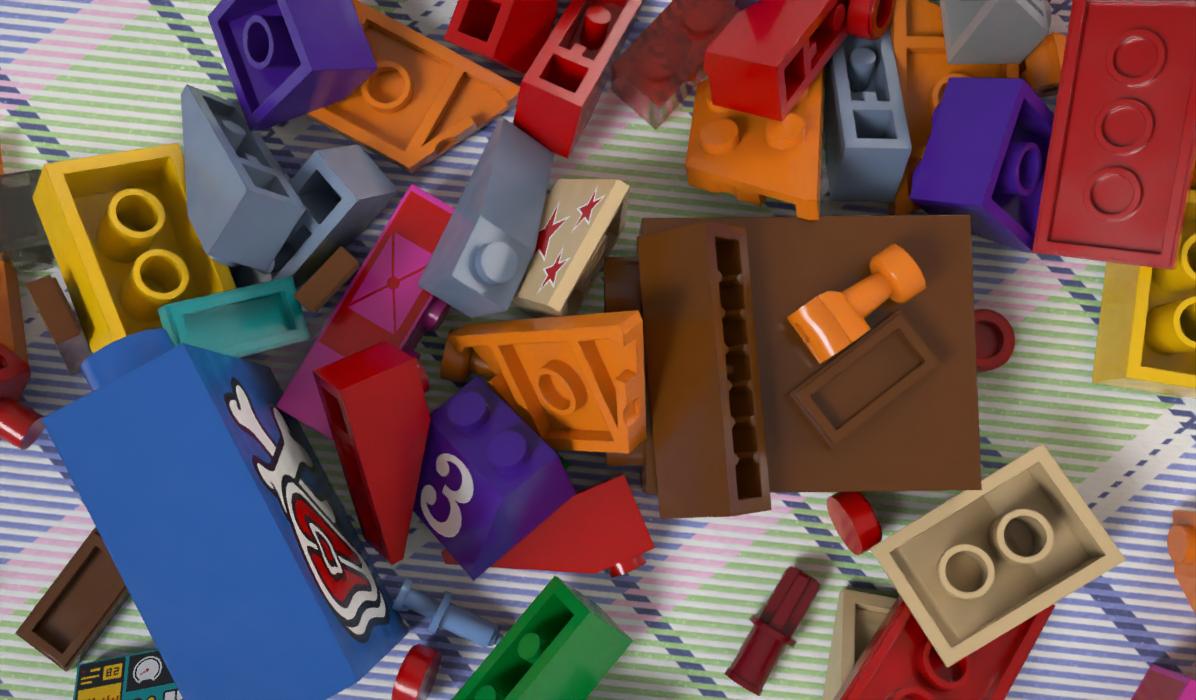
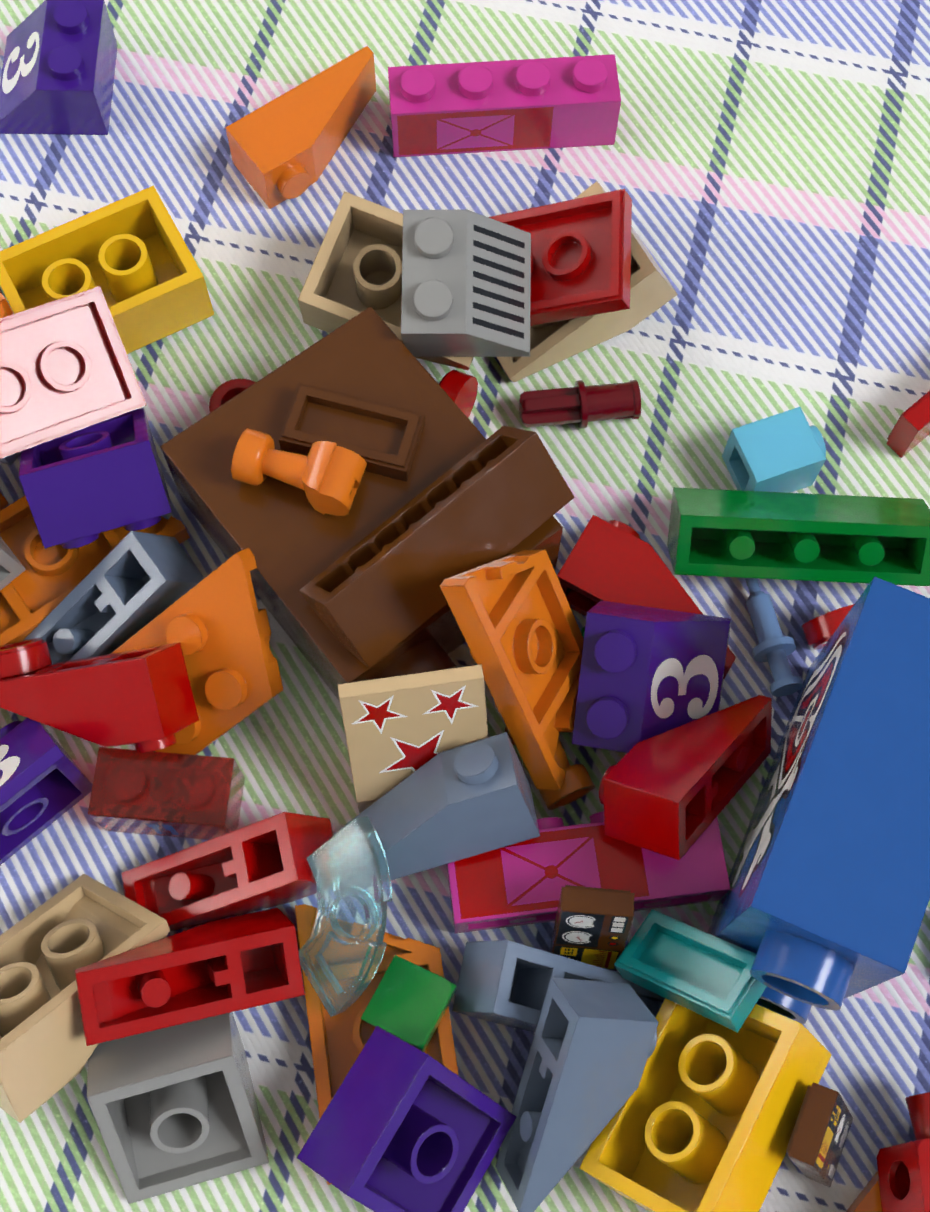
camera: 125 degrees left, 15 degrees down
(381, 111) = (409, 1002): none -> green slope
(477, 112) = (350, 917): none -> clear light blue tile
(946, 593) = (464, 285): none -> light grey slope

